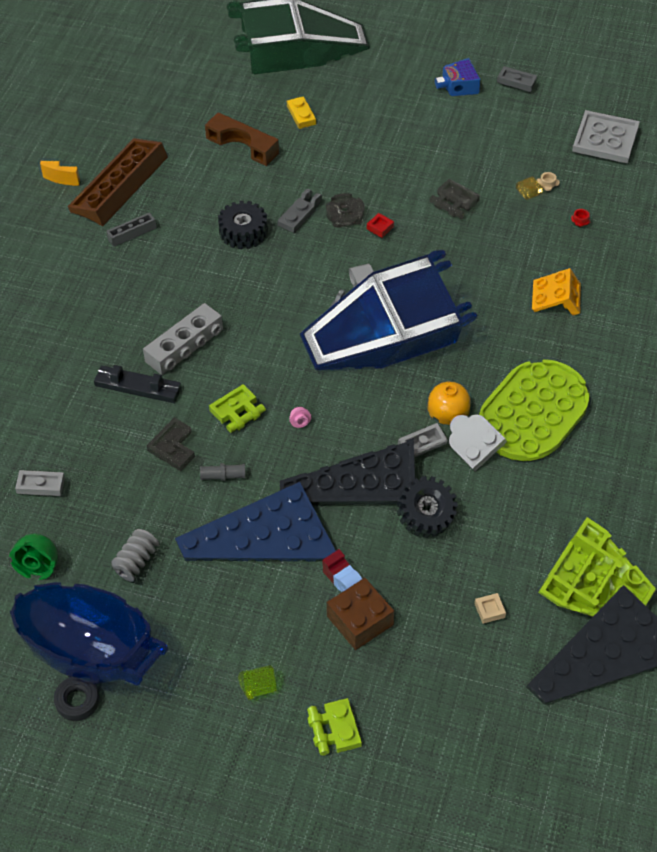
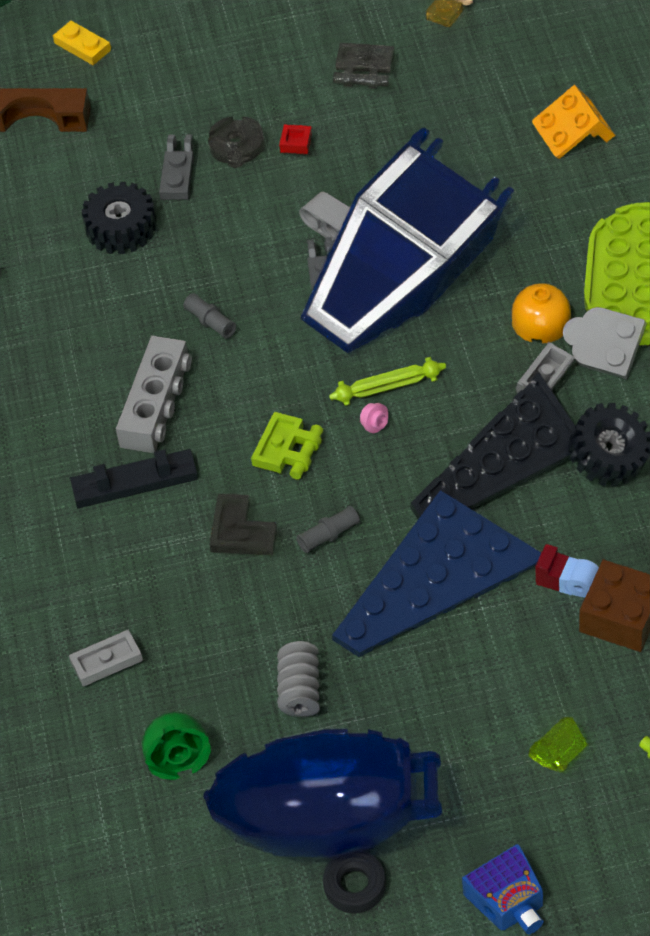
camera: 25 degrees left, 0 degrees up
(158, 756) = (506, 891): none -> torso
(251, 308) = (209, 315): none -> dark grey pin
(326, 399) = (387, 381): none -> lime wheel
(580, 217) = (534, 19): red plate -> none

